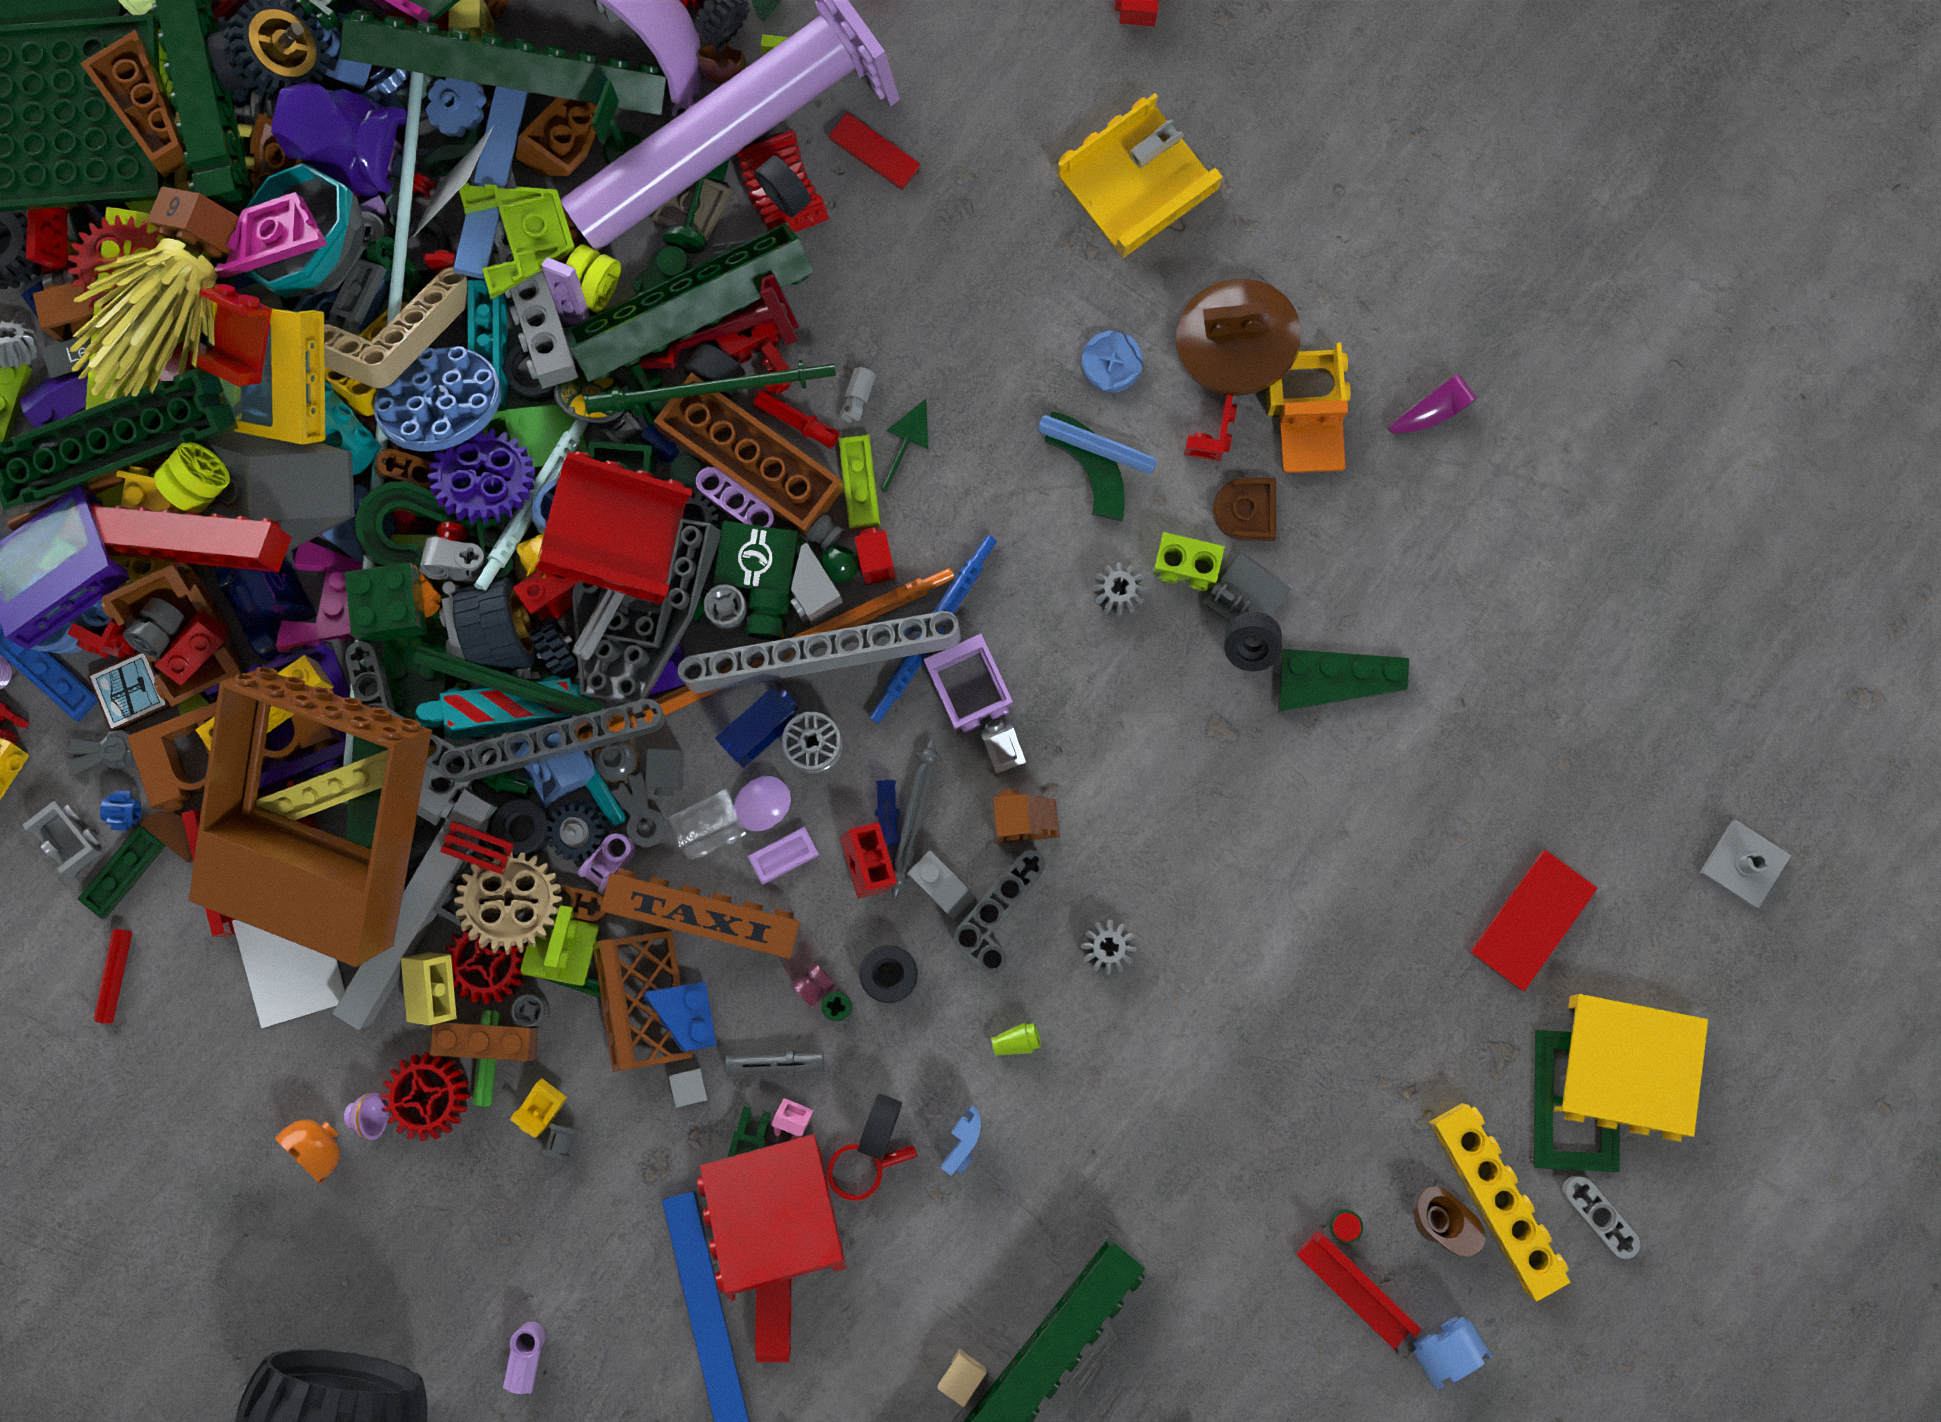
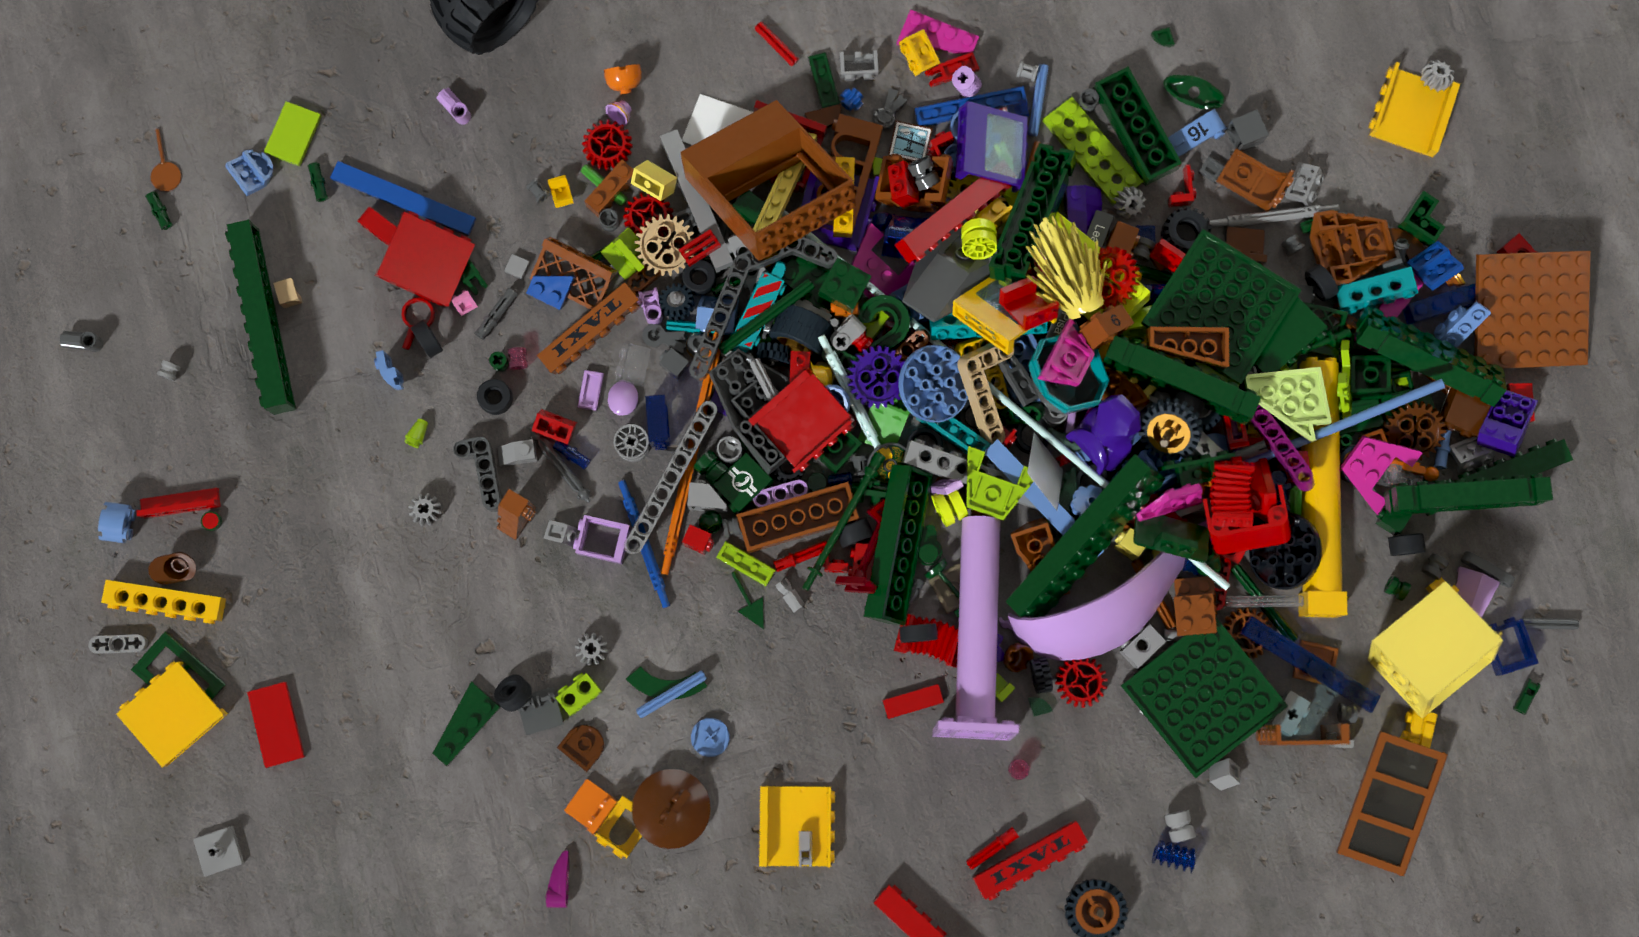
camera: 120 degrees right, 0 degrees up
(619, 141) = (1011, 573): dark green piece -> none
(1202, 444) = (631, 748): red bracket -> none

